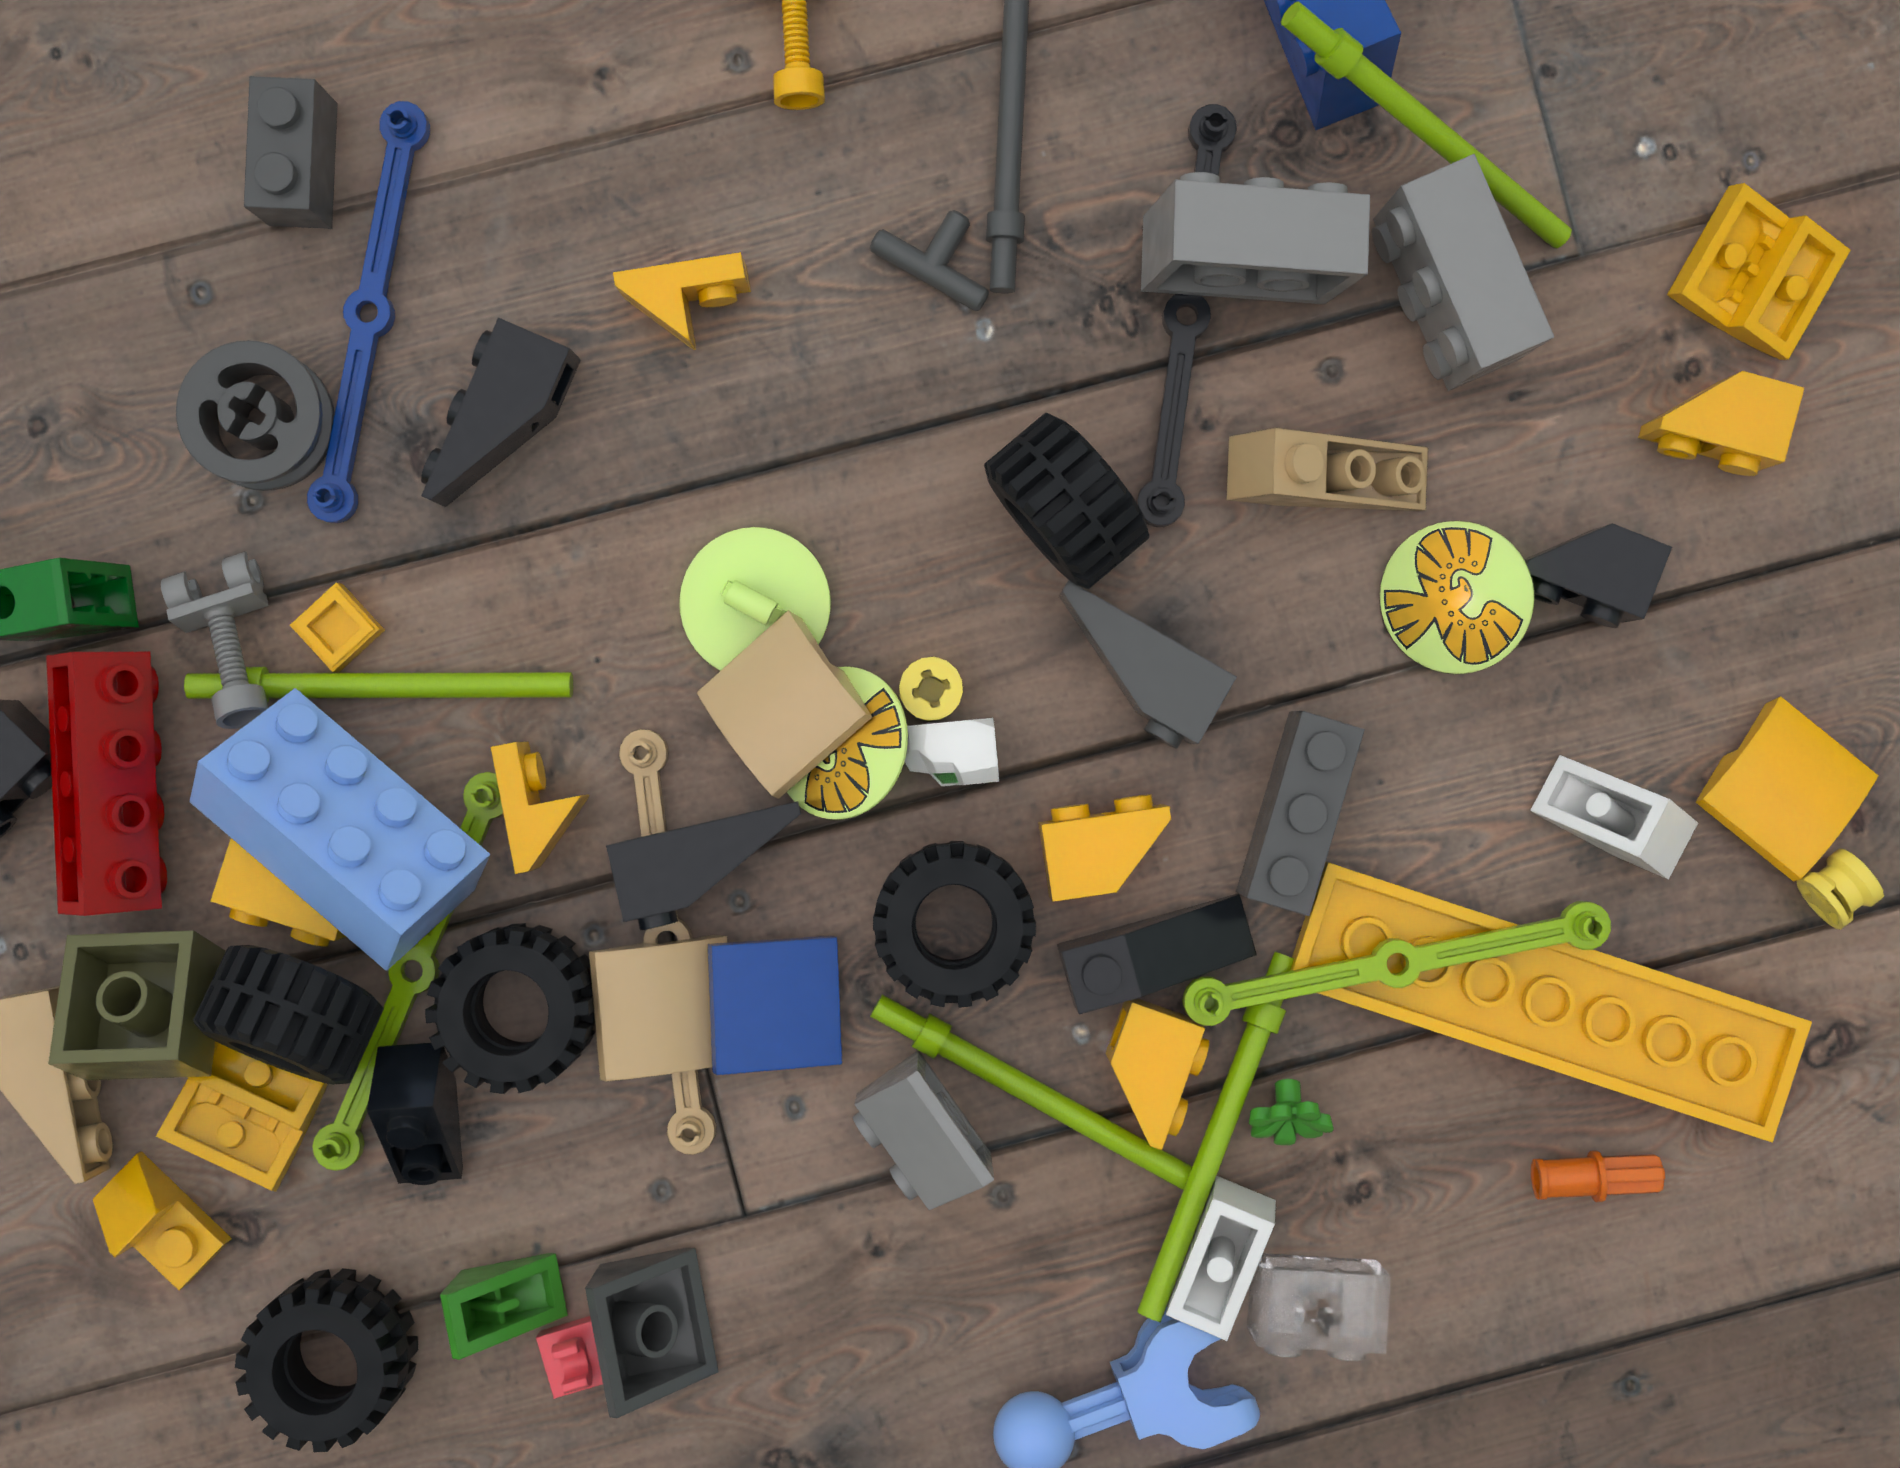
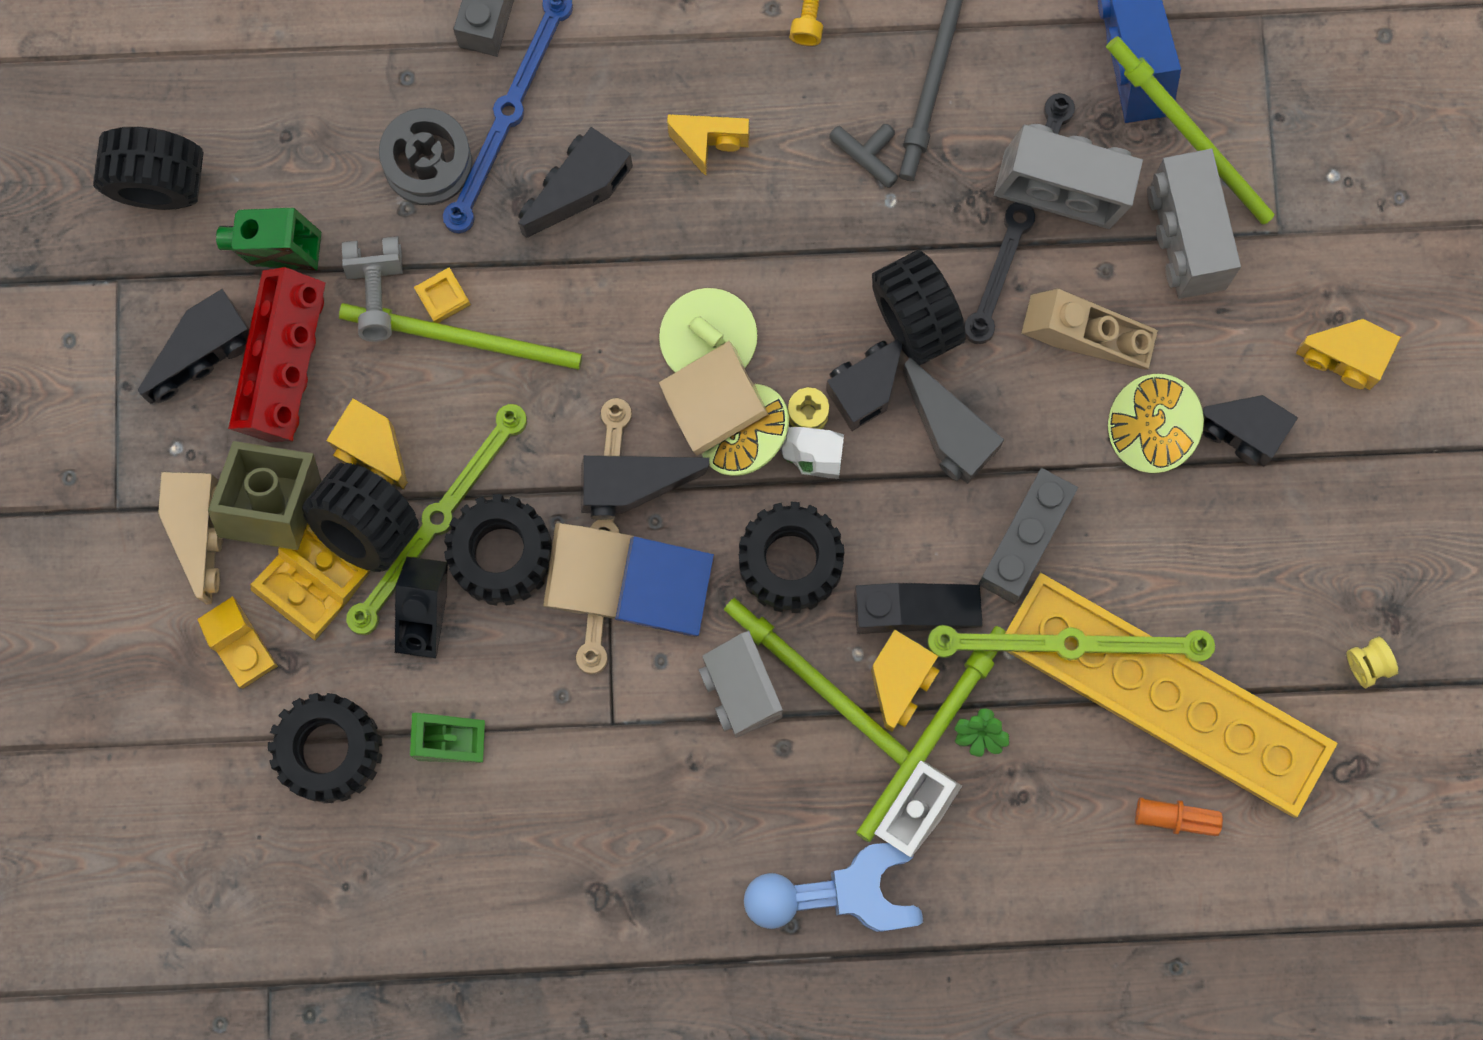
camera: 15 degrees right, 10 degrees down
(338, 827) = (419, 411): light blue brick -> none
(530, 825) = (539, 439): yellow slope -> none
(570, 1357) = (483, 789): coral tile -> none
(650, 1328) = (538, 776): dark grey slope -> none
(1012, 633) = (866, 387): none -> black slope
(1098, 851) = (892, 533): yellow slope -> none
(1293, 1283) = (1000, 853): clear brick -> none
(1615, 816) = (1234, 584): white slope -> none
(1758, 272) = (1390, 265): yellow slope -> none
(1787, 789) = (1349, 592): yellow slope -> none

